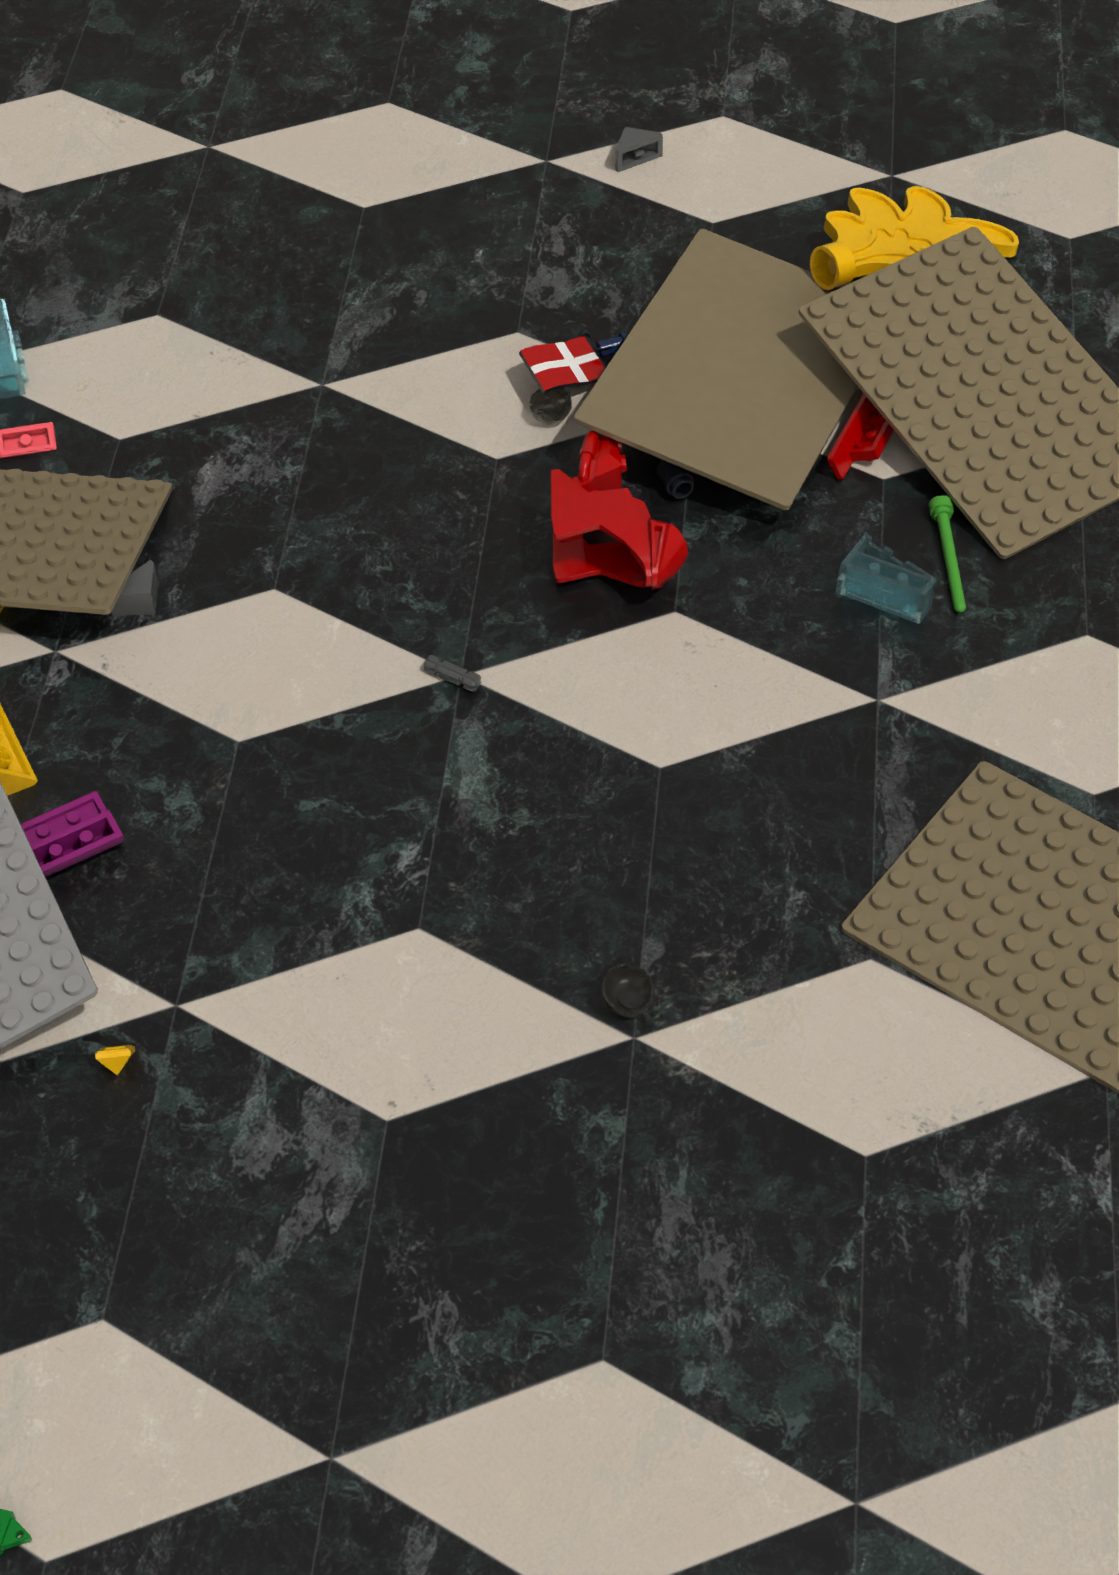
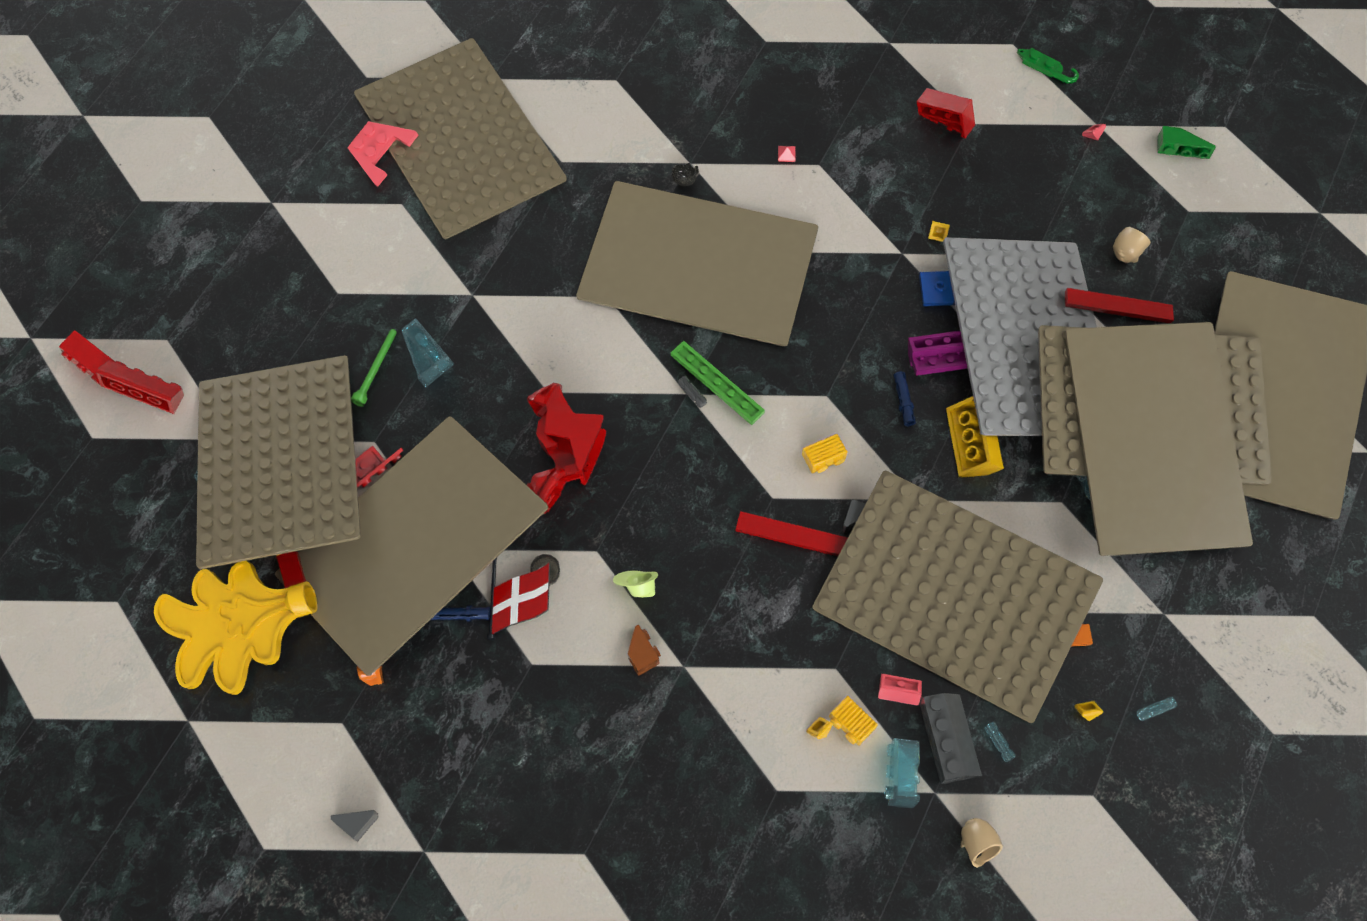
camera: 160 degrees left, 15 degrees up
(79, 386) = (852, 721): none -> yellow brick
(104, 756) = (906, 406): none -> dark blue pin
(104, 954) = (936, 288): none -> blue plate
(121, 370) = (820, 728): none -> yellow slope
(158, 1300) = (947, 109): none -> red wedge
(213, 650) = (824, 453): none -> yellow brick
(228, 550) = (790, 534): none -> red tile
(378, 369) = (641, 653): none -> dark orange slope
(419, 693) = (717, 383): none -> bright green plate
(424, 427) = (637, 582): none -> yellowish green piece
(457, 1116) = (786, 153): none -> coral slope
(532, 866) = (699, 263): none -> dark tan baseplate

